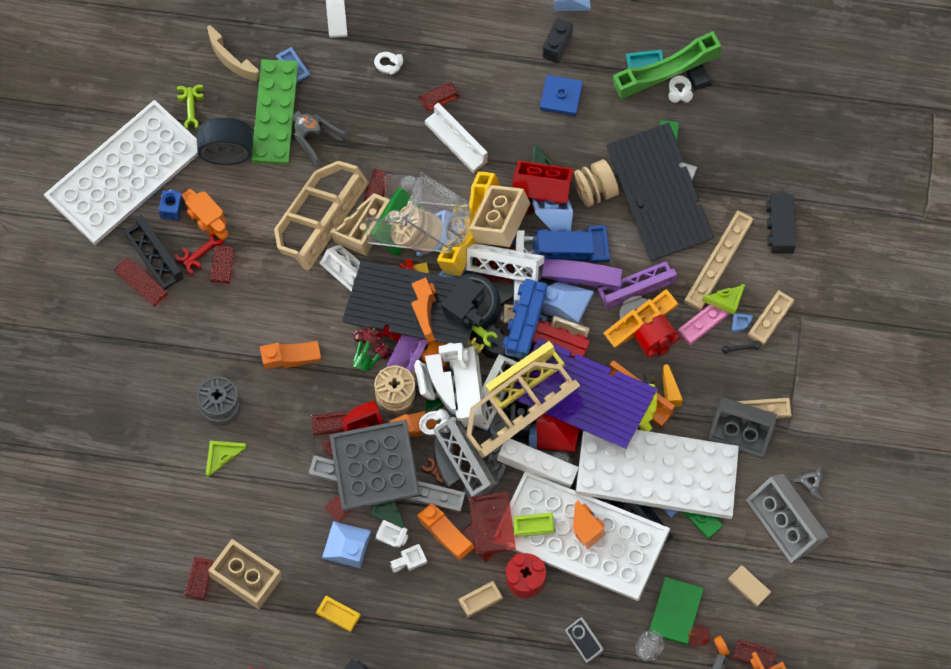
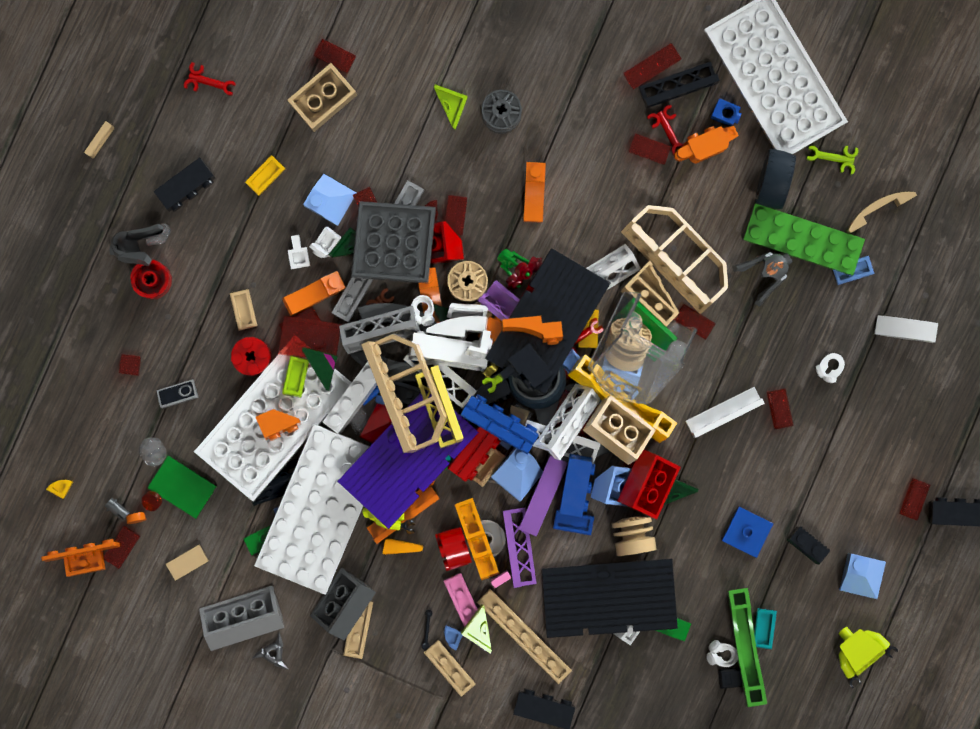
camera: 105 degrees right, 20 degrees up
(514, 500) = (323, 365): none -> dark green tile
(673, 285) = (500, 579): none -> bright pink tile

